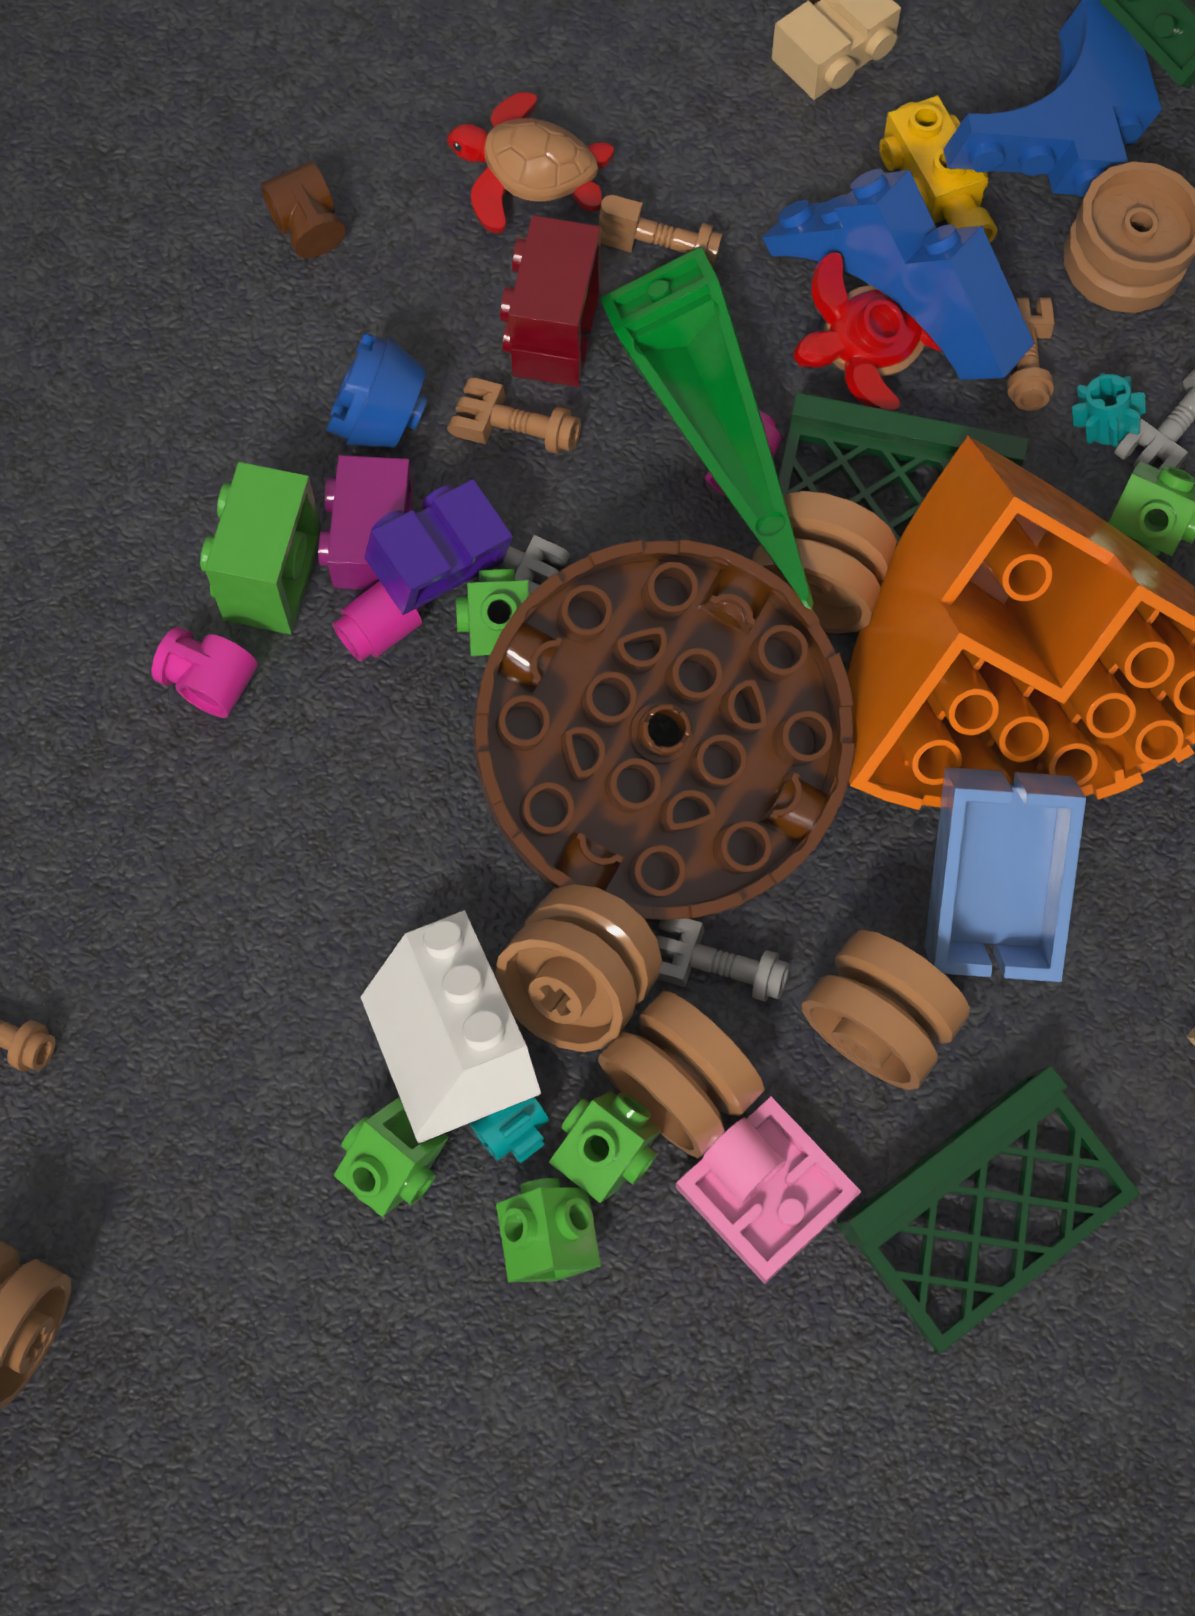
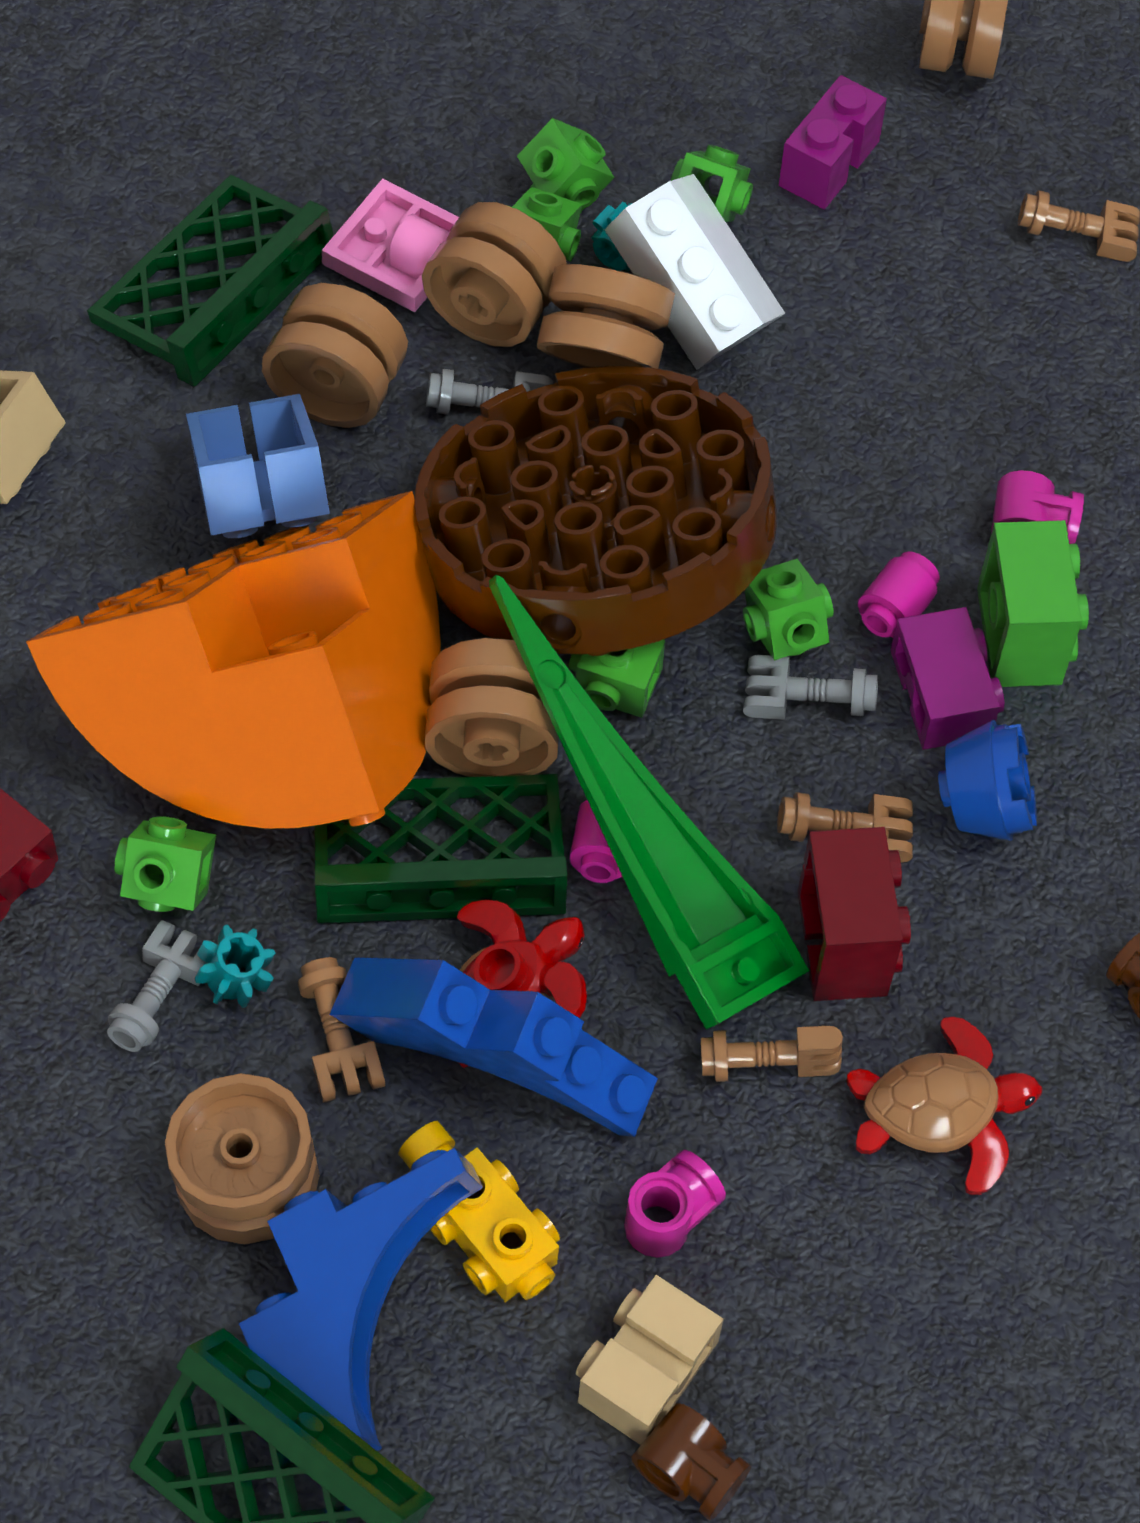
camera: 160 degrees right, 10 degrees down
(224, 1203) = (830, 139): none -> magenta brick
(438, 547) = (866, 623): dark purple brick -> none
(770, 141) = (685, 1189): none -> dark pink piece

